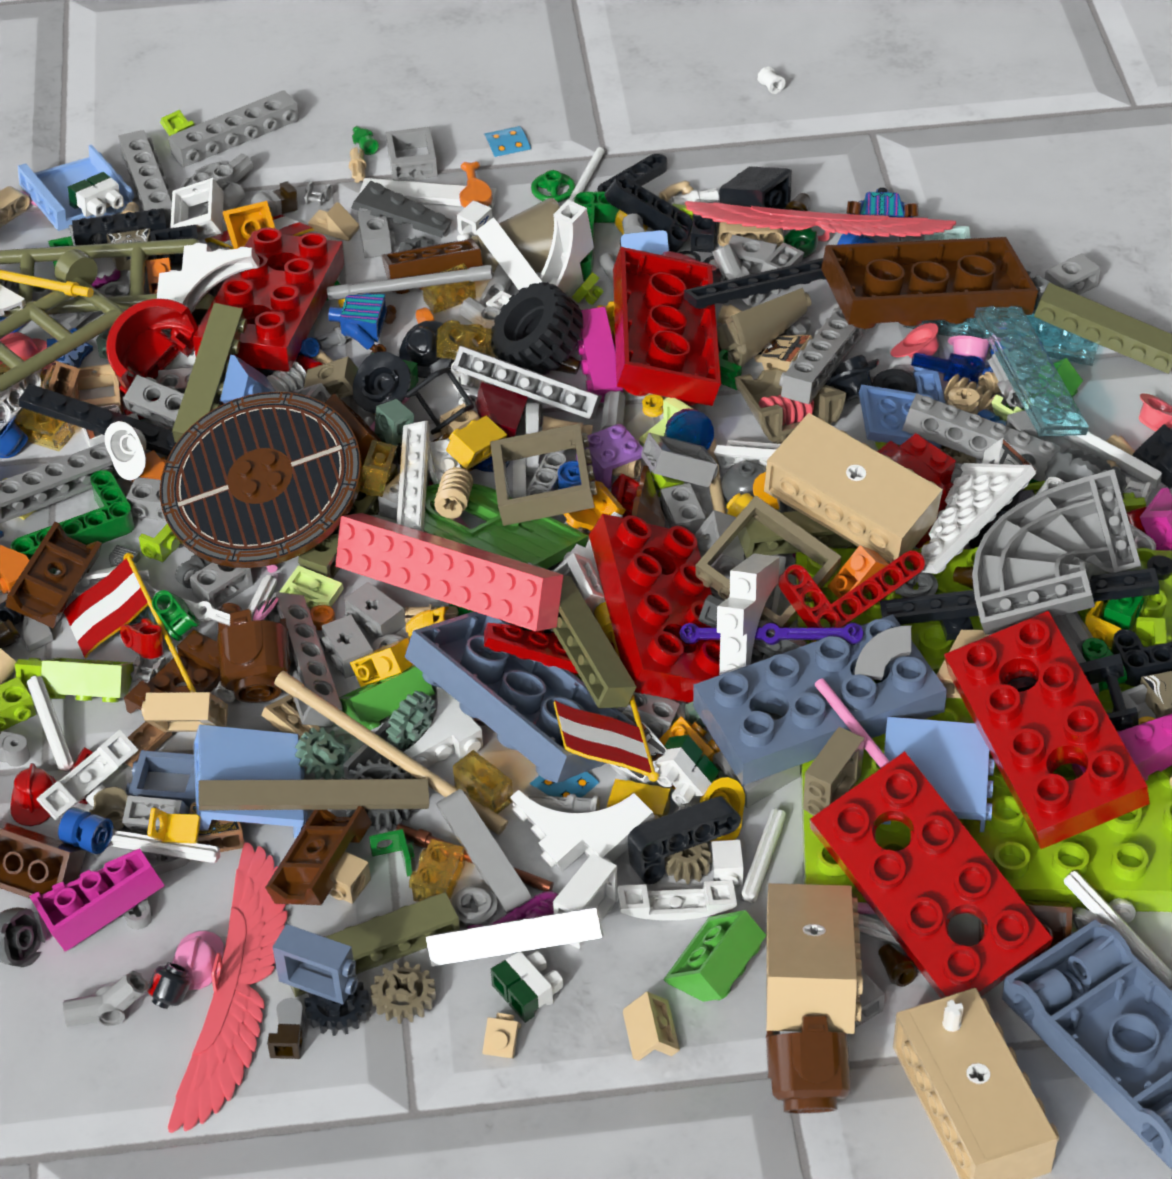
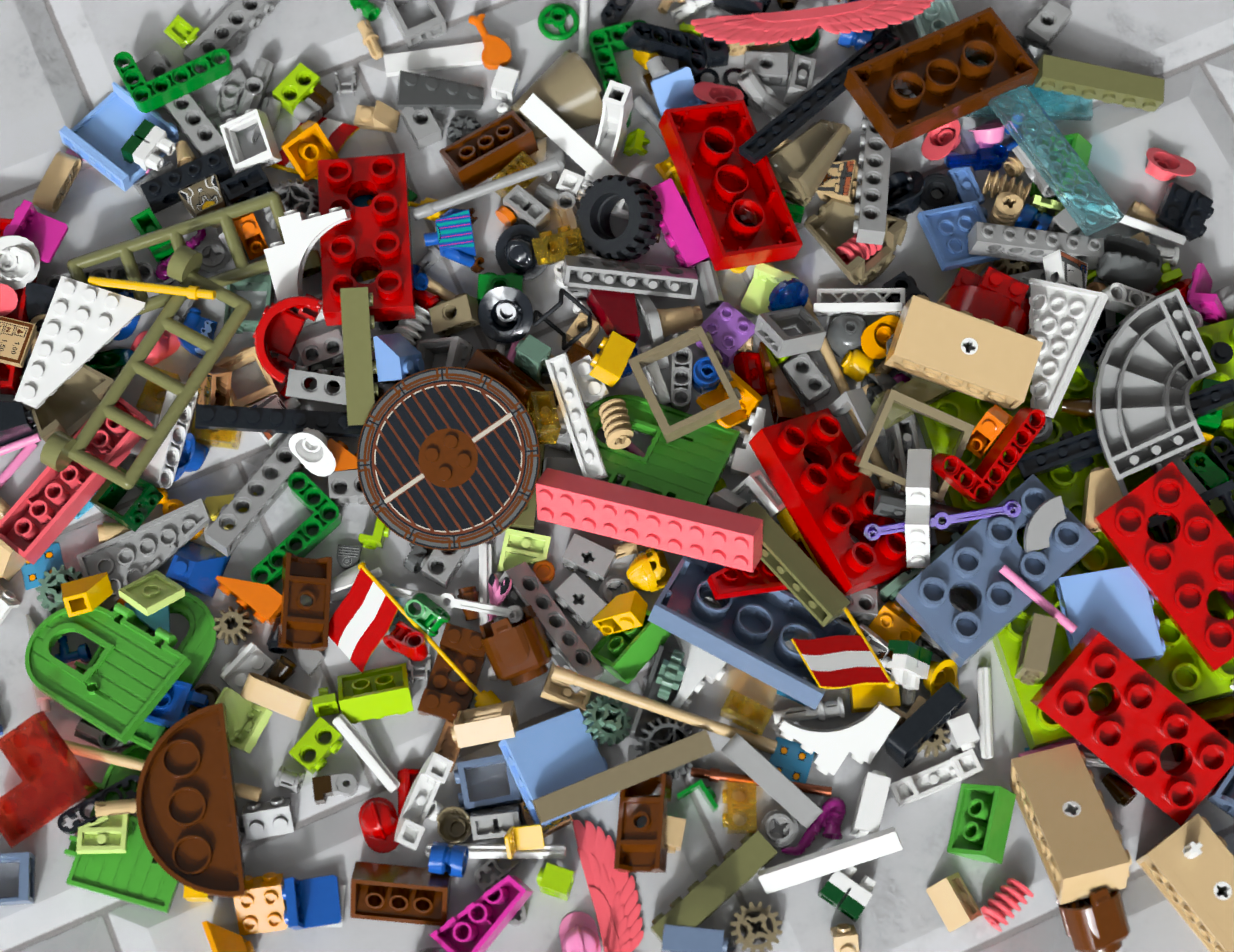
camera: 20 degrees left, 25 degrees up
(148, 150) = (171, 79): none -> green beam
(195, 884) = (555, 881): none -> lime brick
(263, 181) = (293, 86): none -> lime brick
(446, 307) = (527, 208): none -> light grey brick
(519, 847) = (792, 760): none -> dark azure sticker
(710, 1038) = (1004, 903): none -> coral piece

